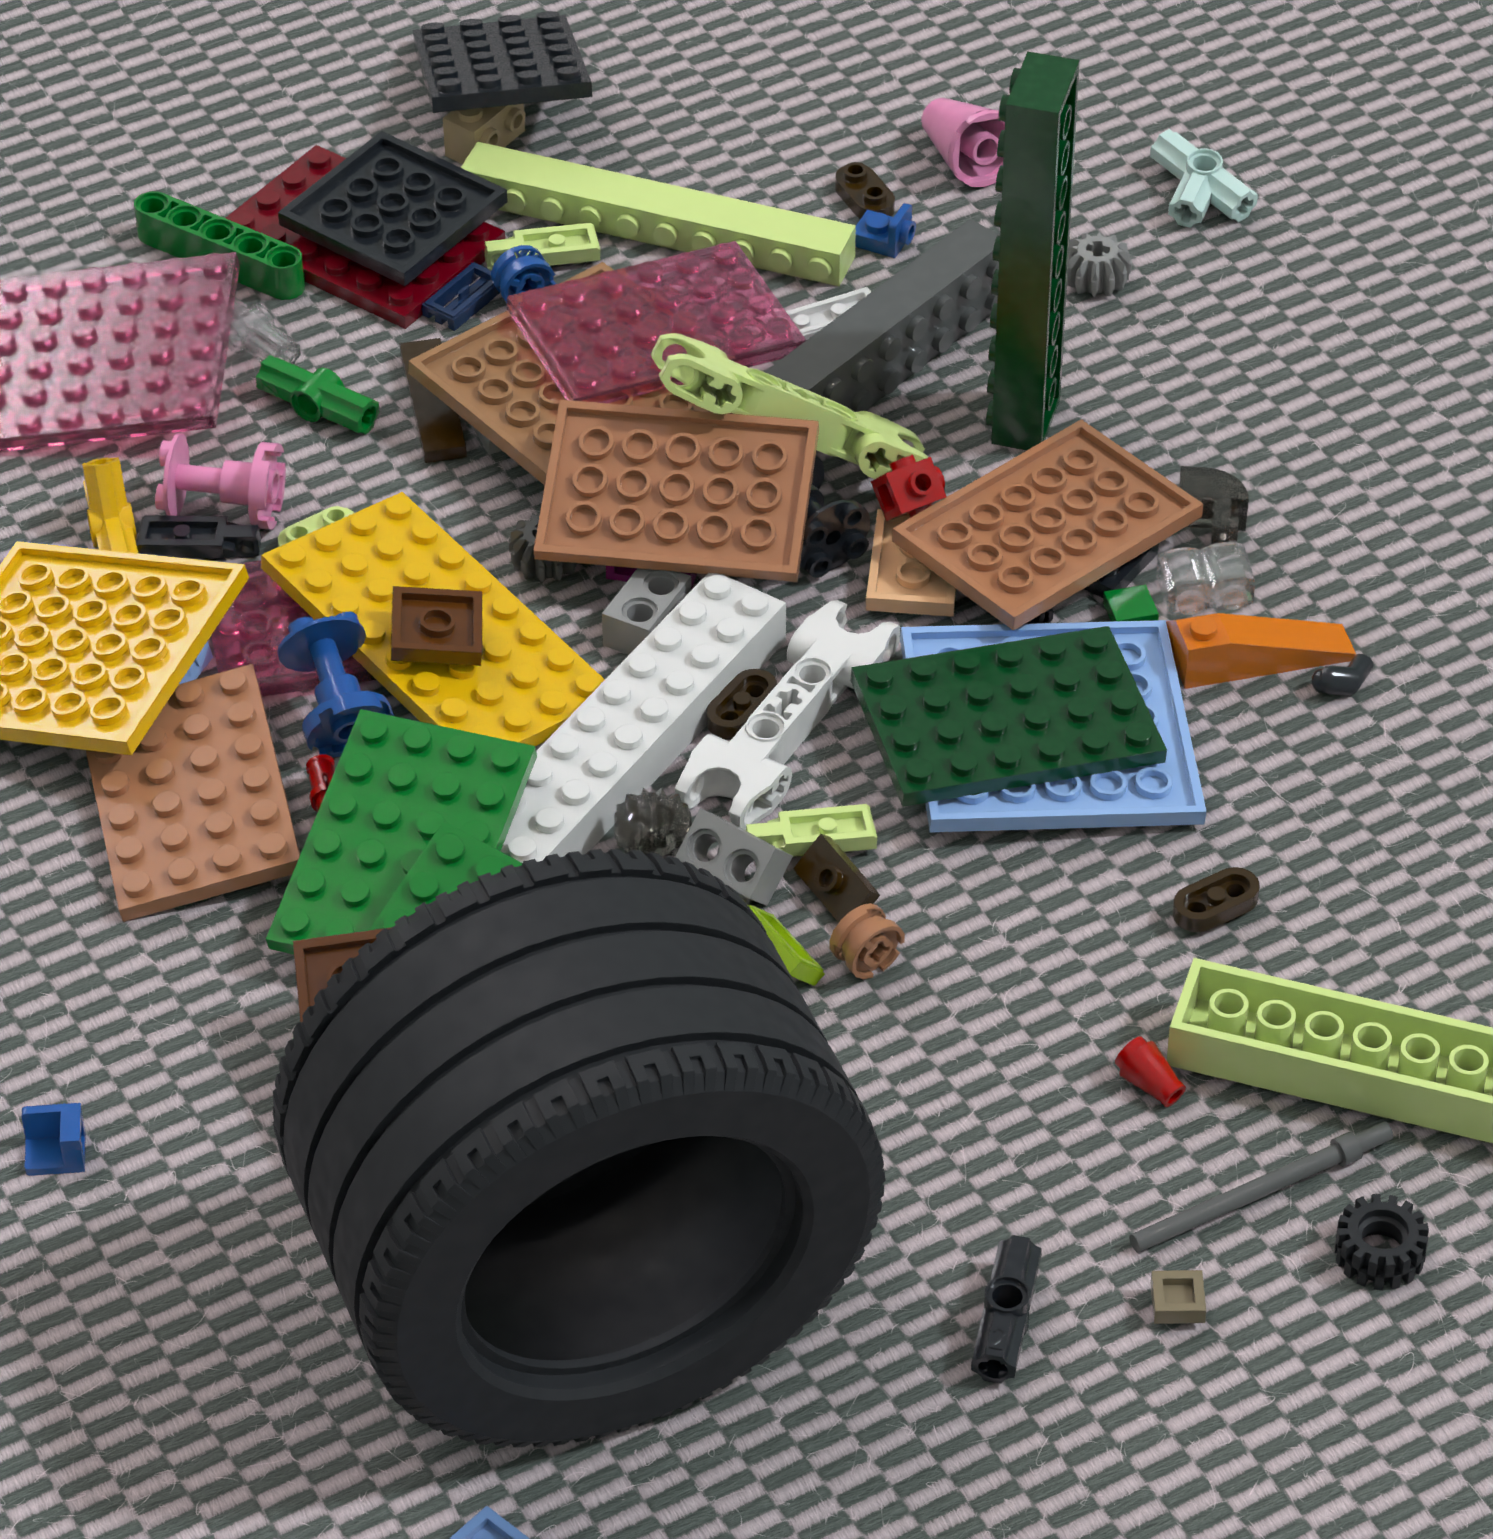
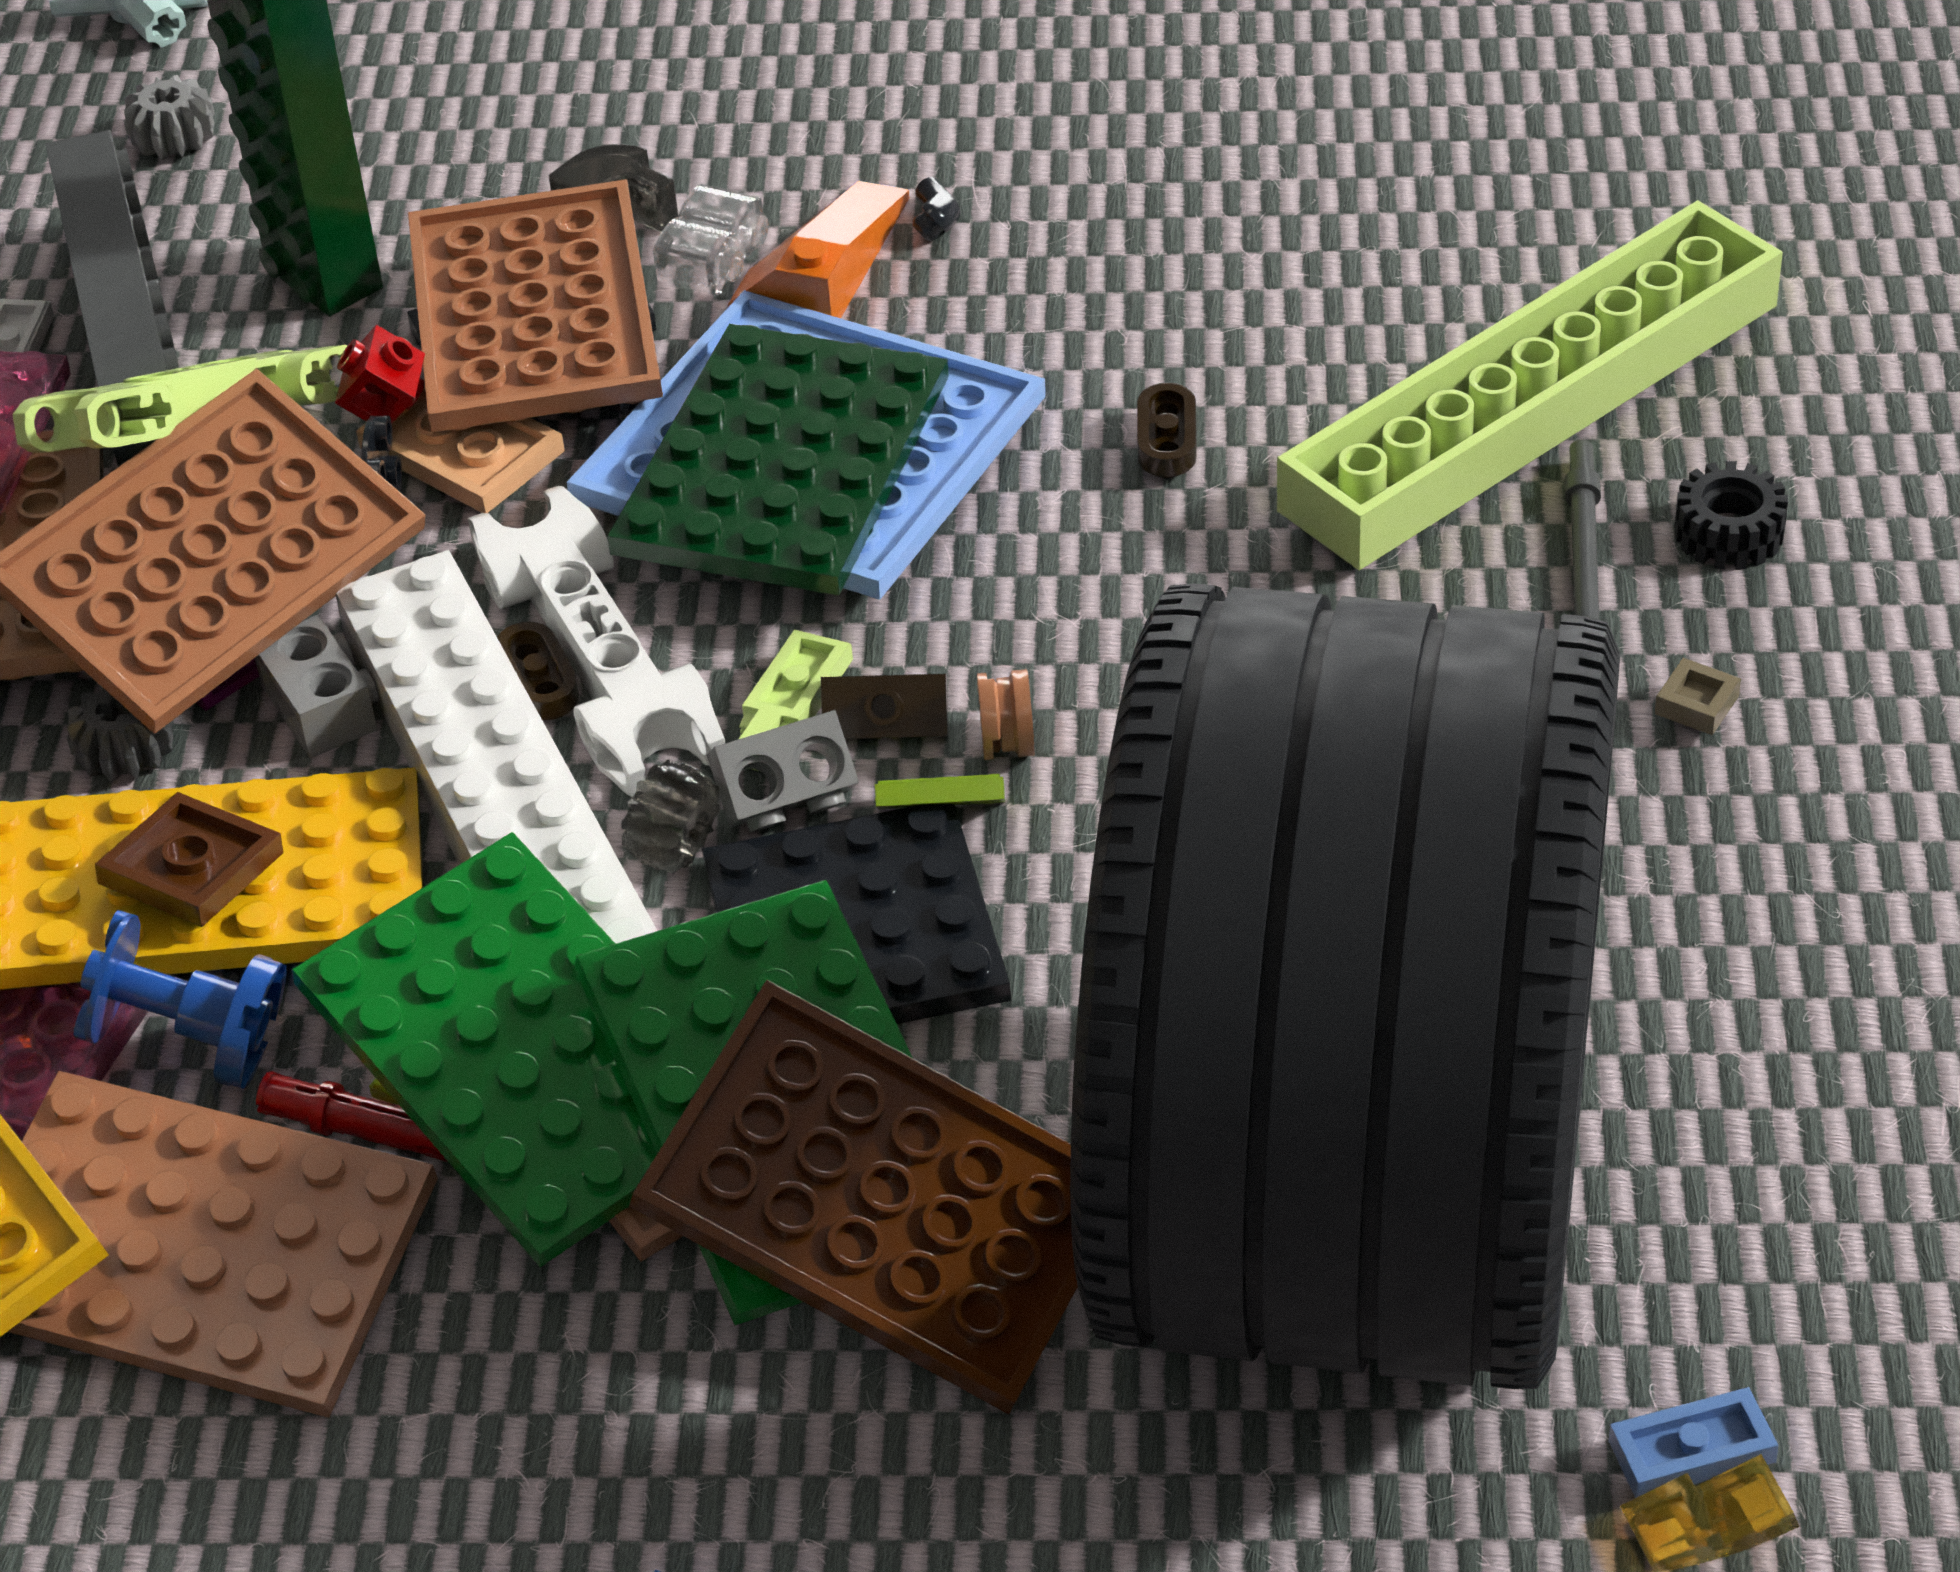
camera: 55 degrees left, 0 degrees up
(1006, 1309) = (1656, 855): black piece -> none
(1130, 604) = (686, 314): green tile -> none
(1148, 1069) = (1368, 578): red cone -> none

